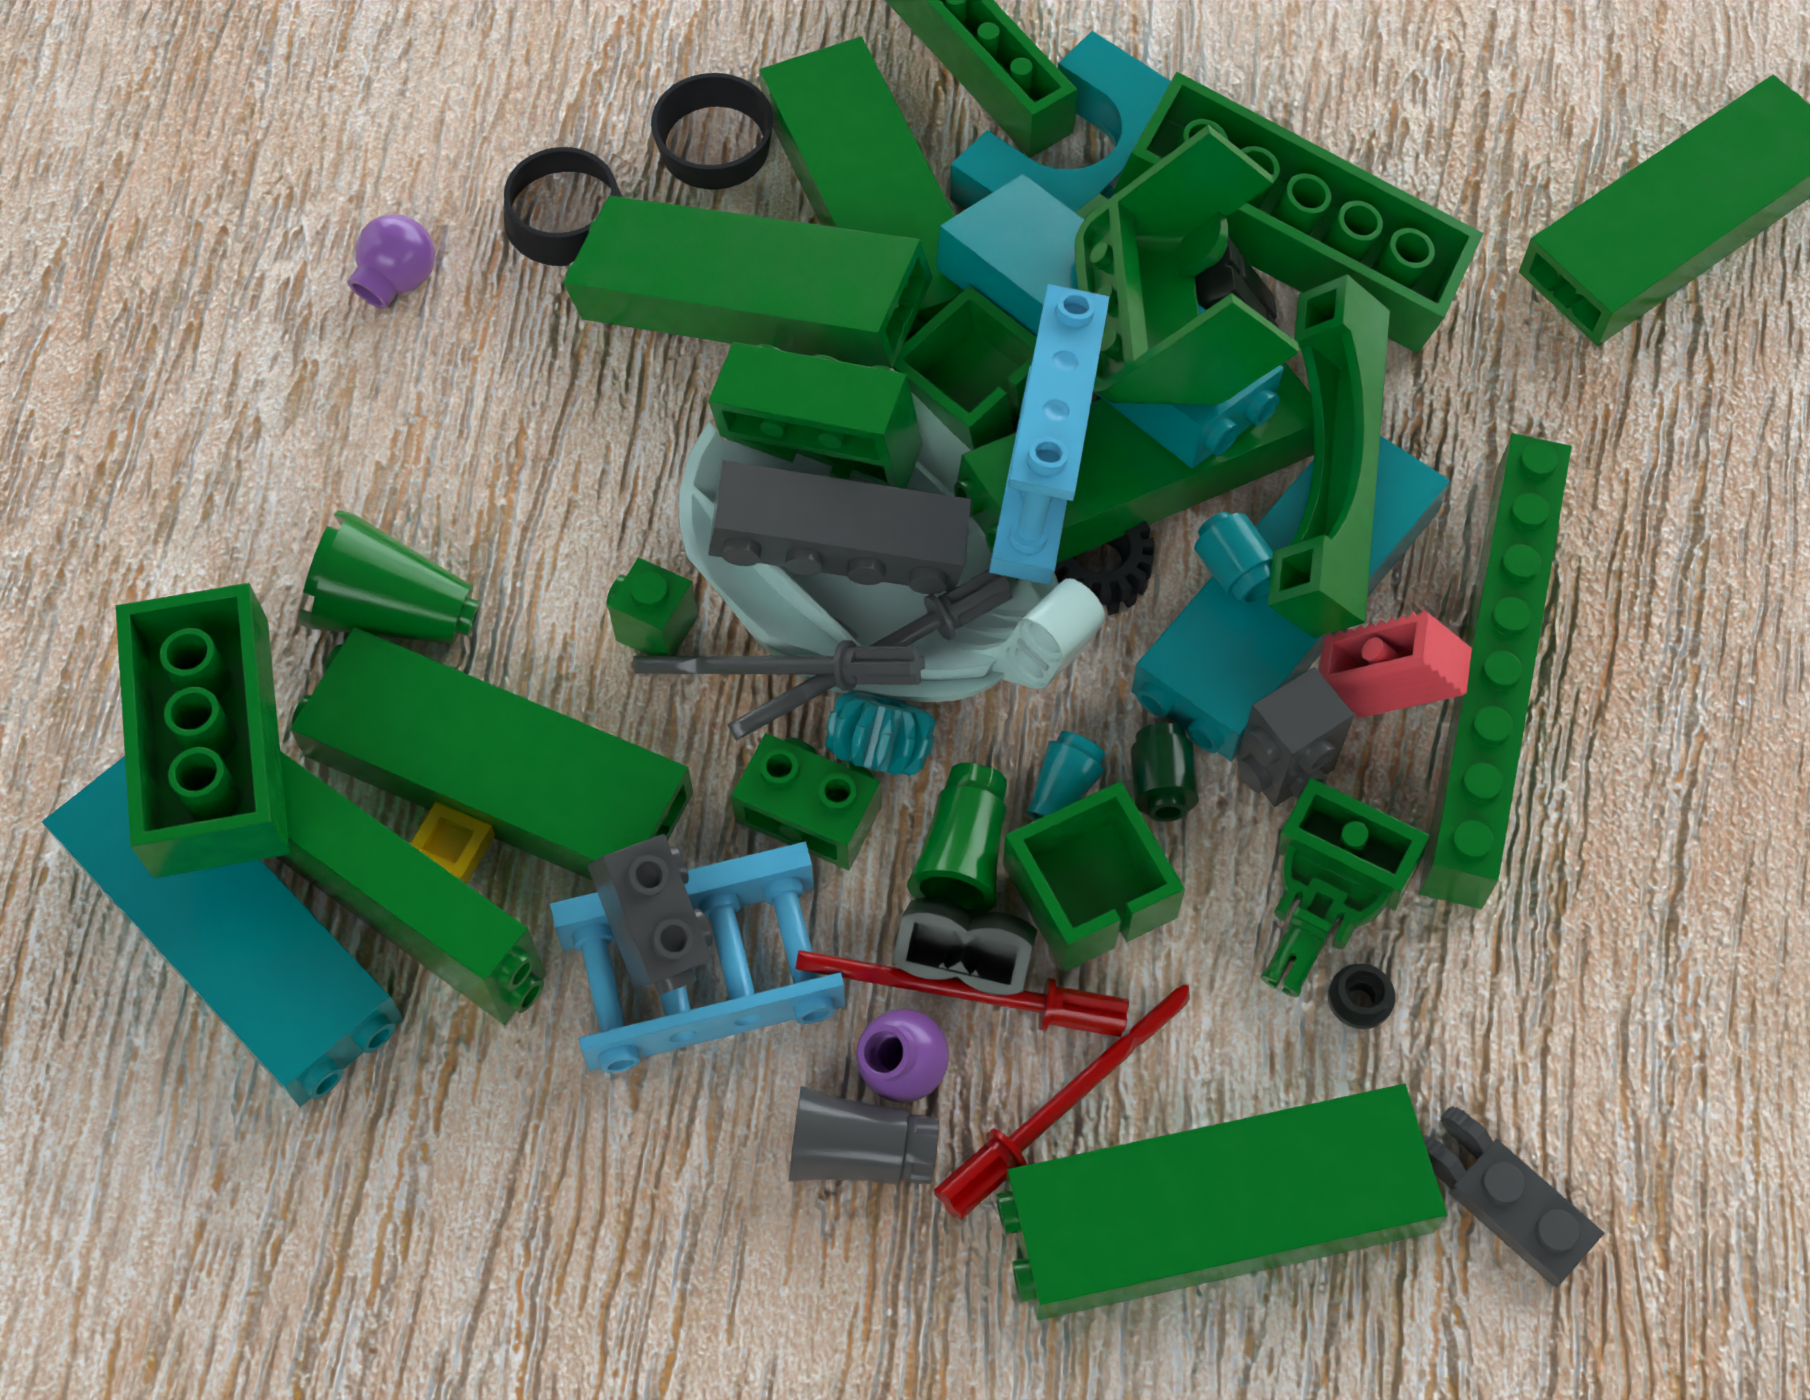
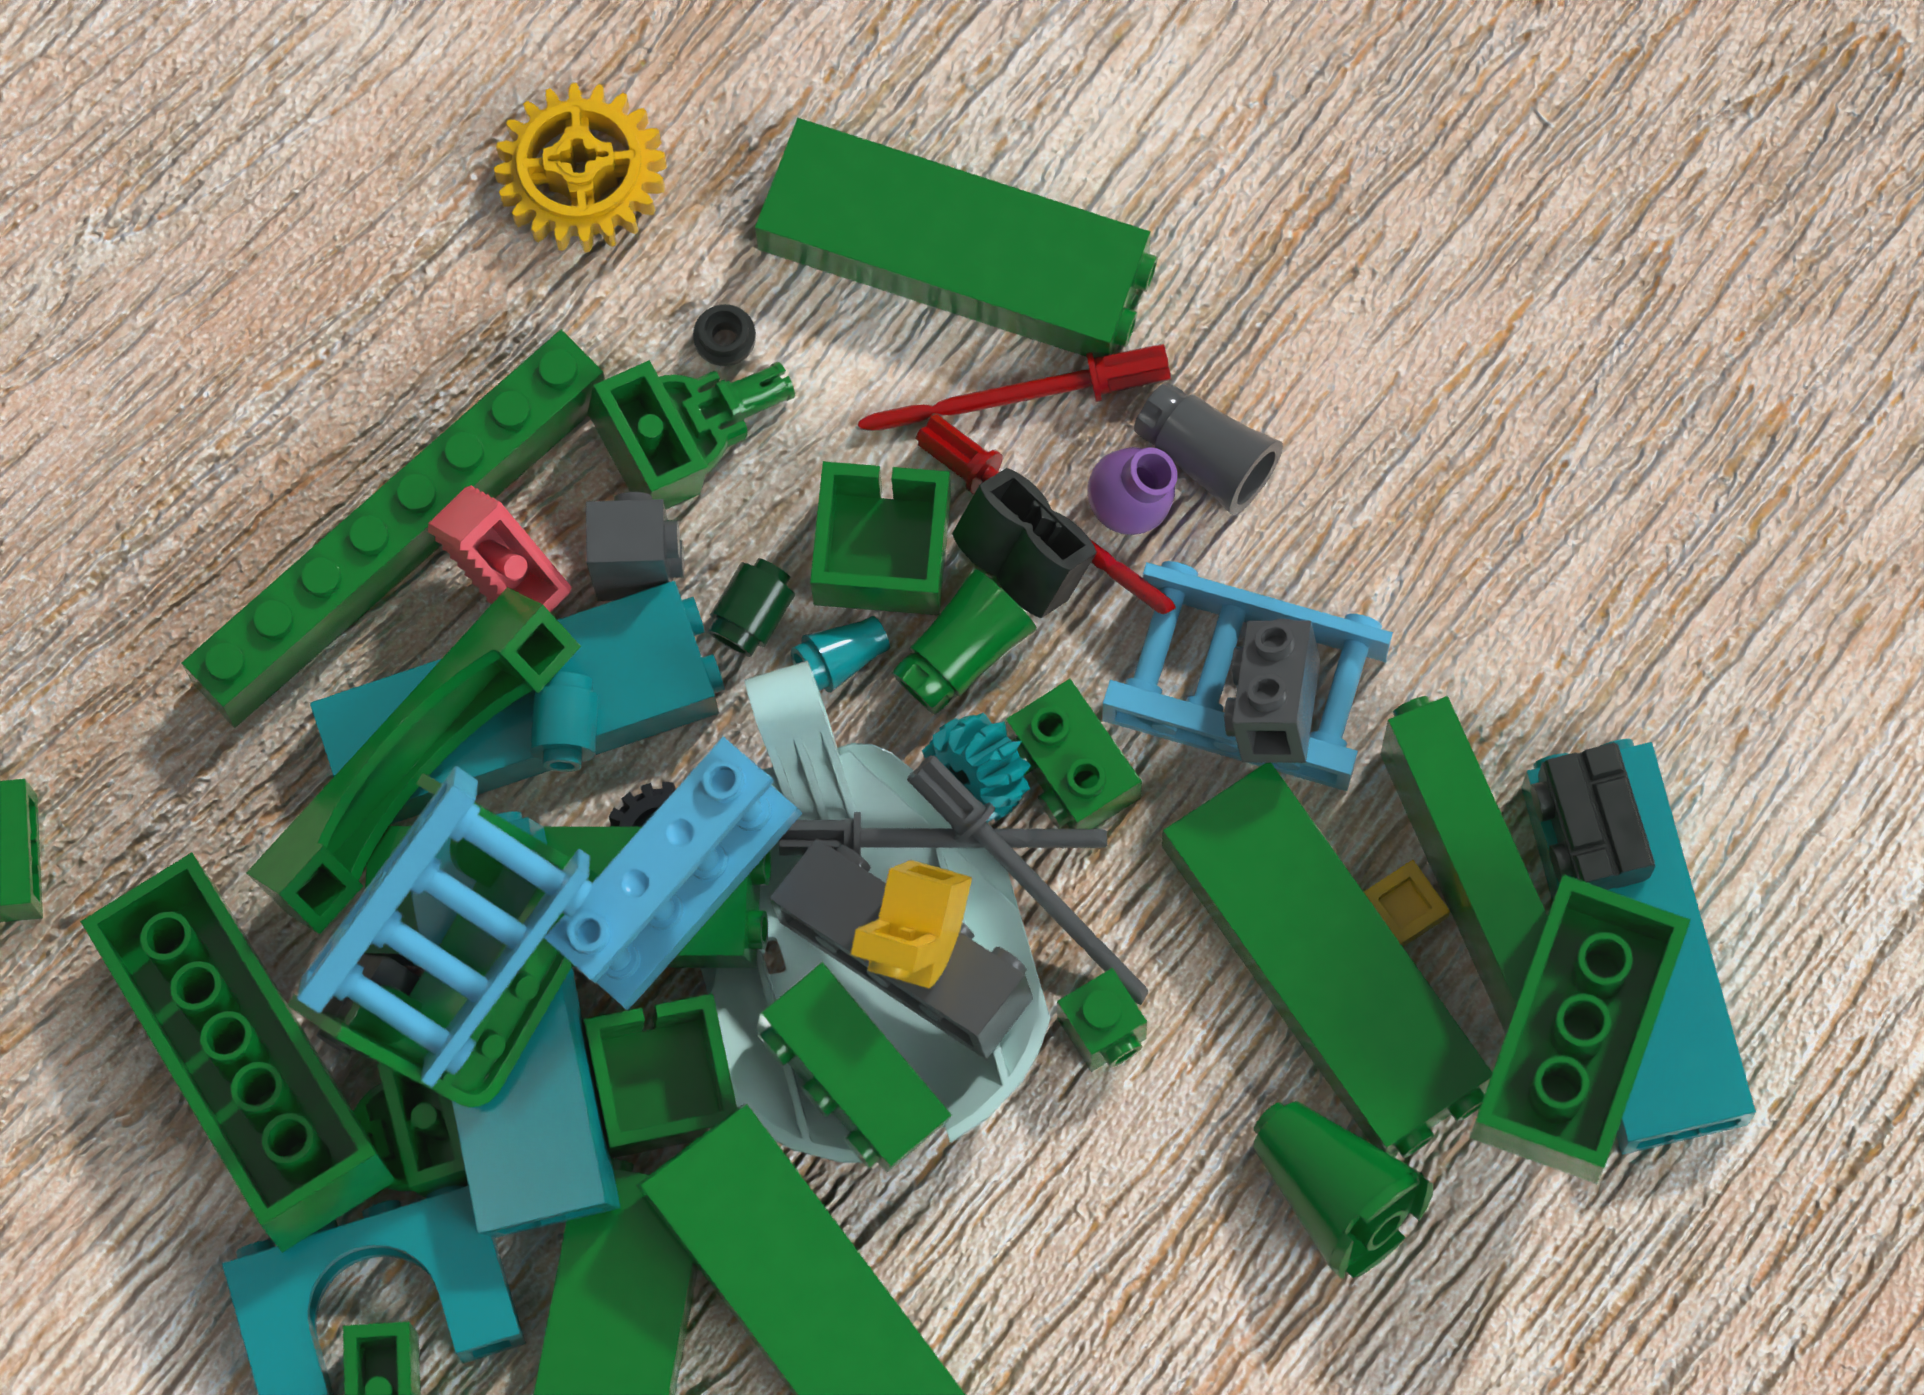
camera: 145 degrees left, 10 degrees up
(297, 965) = (1593, 818): none -> pearl dark grey brick
(823, 493) = (915, 923): none -> yellow brick
(1239, 245) = (417, 869): none -> medium azure fence
(1512, 1199) = (725, 119): dark grey hinge -> none
(1616, 1085) = (602, 168): none -> yellow gear

